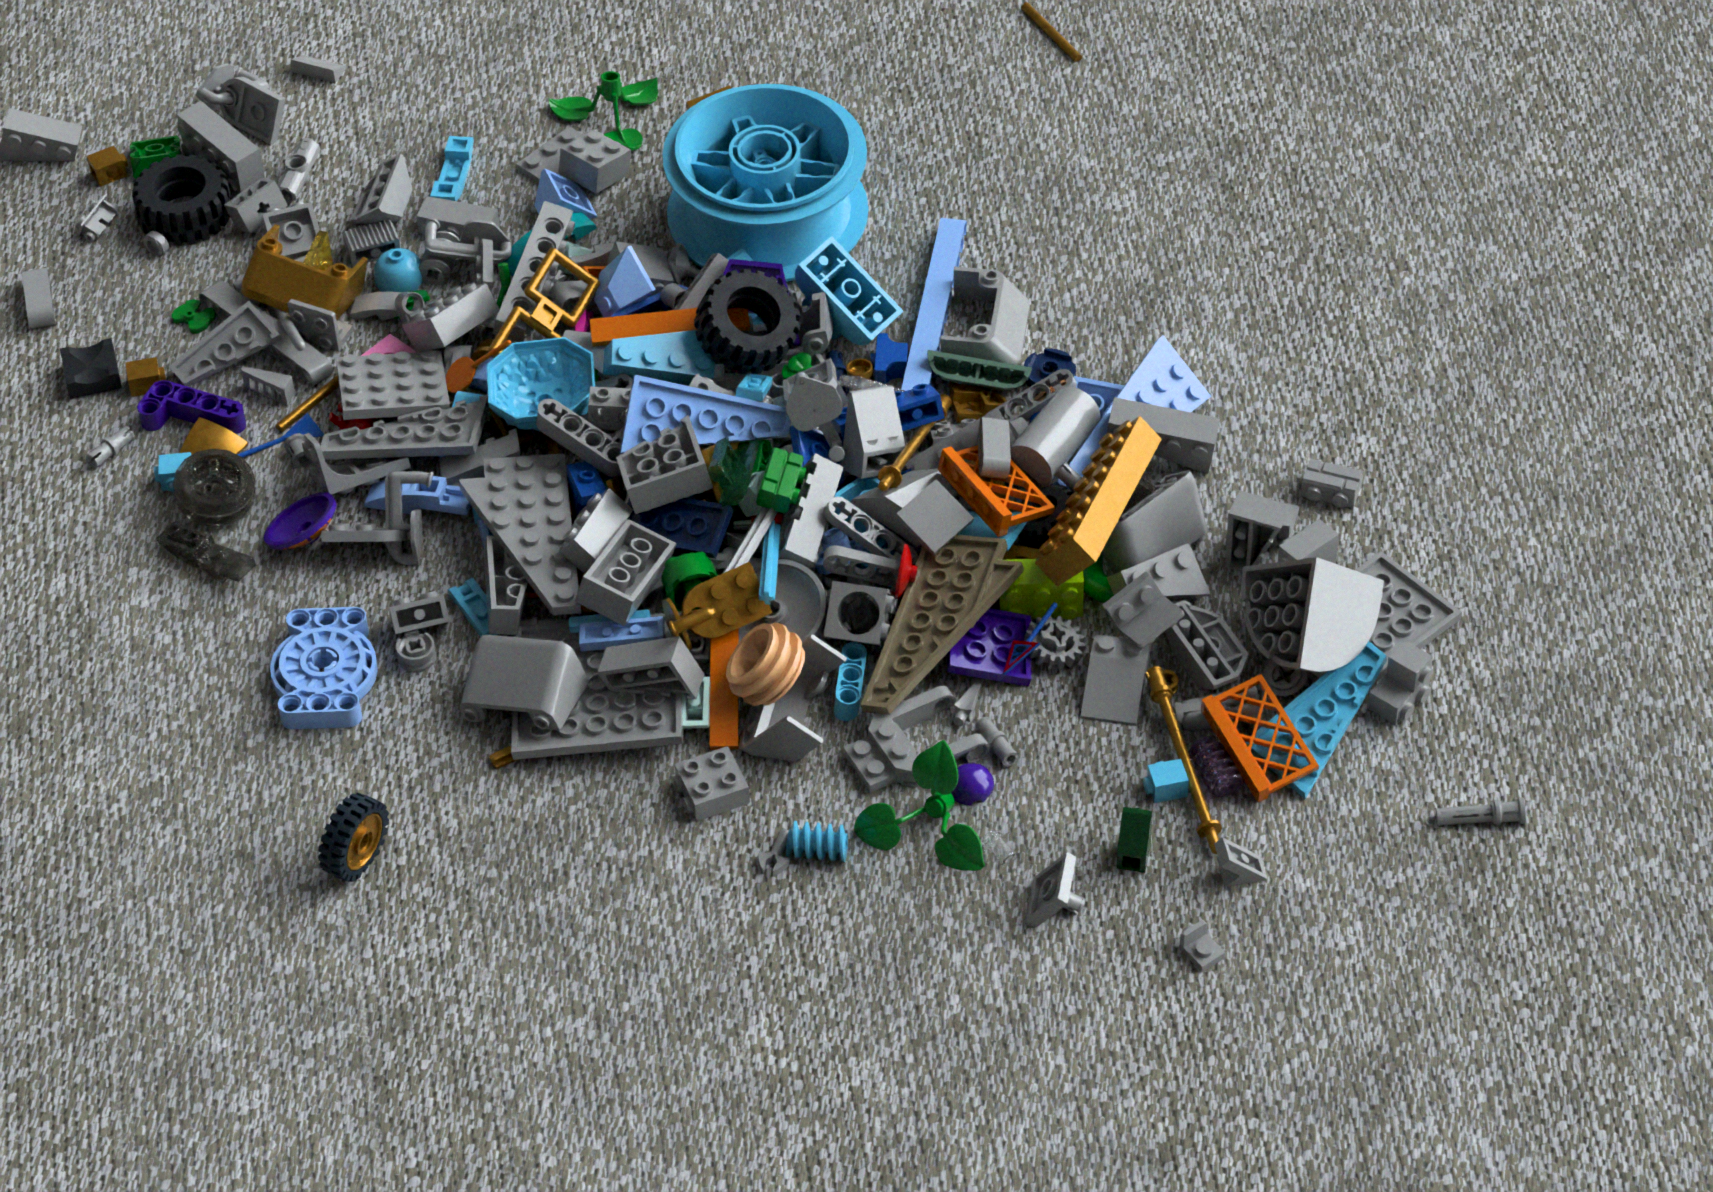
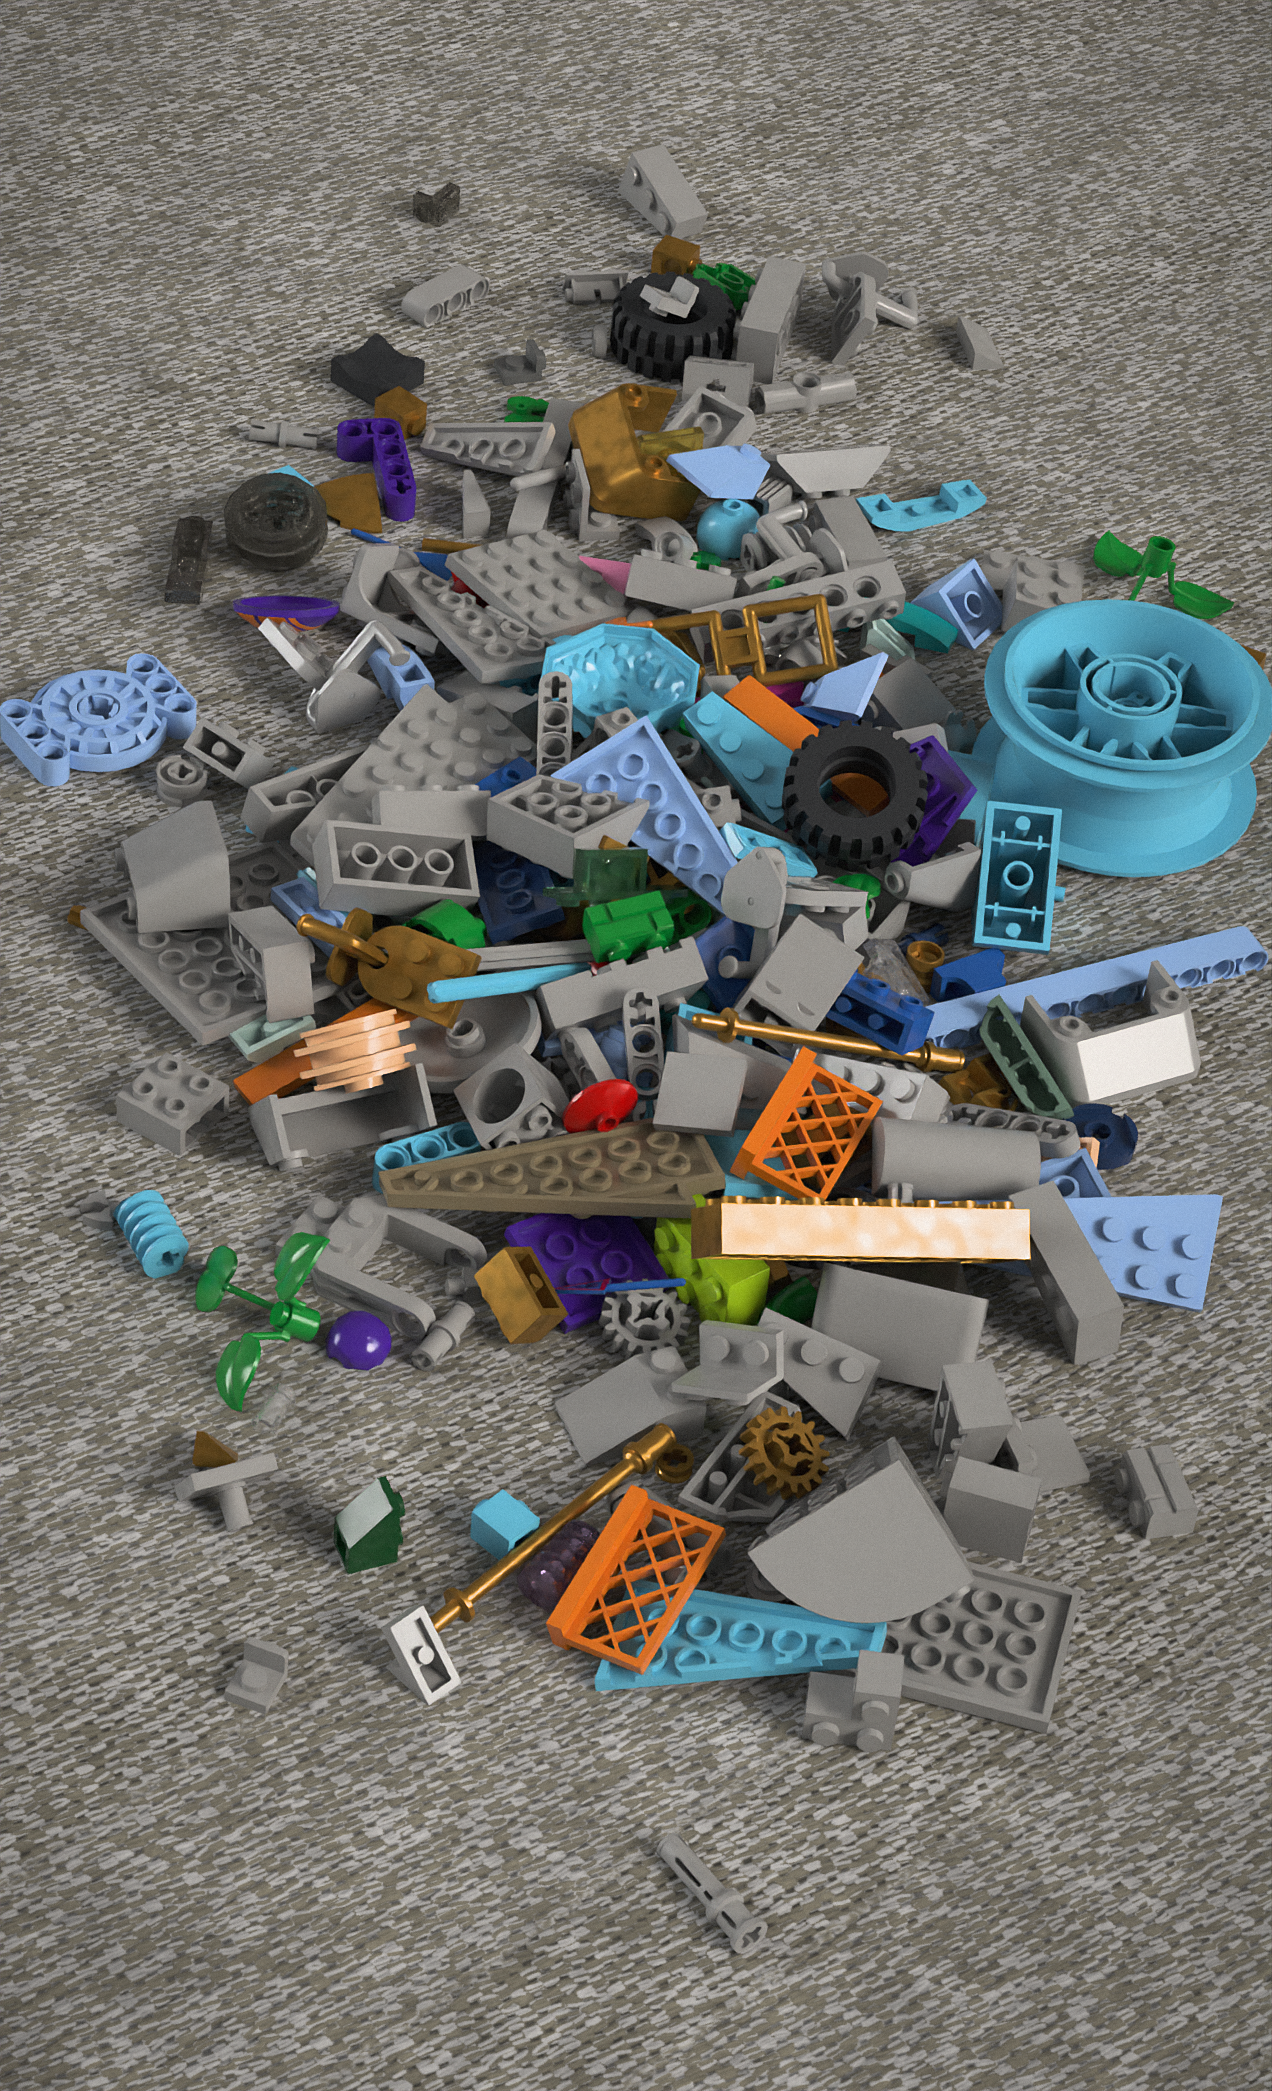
camera: 50 degrees right, 5 degrees down
(145, 294) = (522, 368): none -> dark grey bracket
(184, 179) = (676, 302): none -> light grey bracket
(365, 241) = (723, 470): none -> light blue slope
(994, 448) = (854, 1097): light grey beam -> none
(1002, 687) = (520, 1295): none -> pearl gold brick
(1016, 893) = (211, 1452): none -> pearl gold slope
(1220, 621) = (784, 1453): none -> pearl gold gear

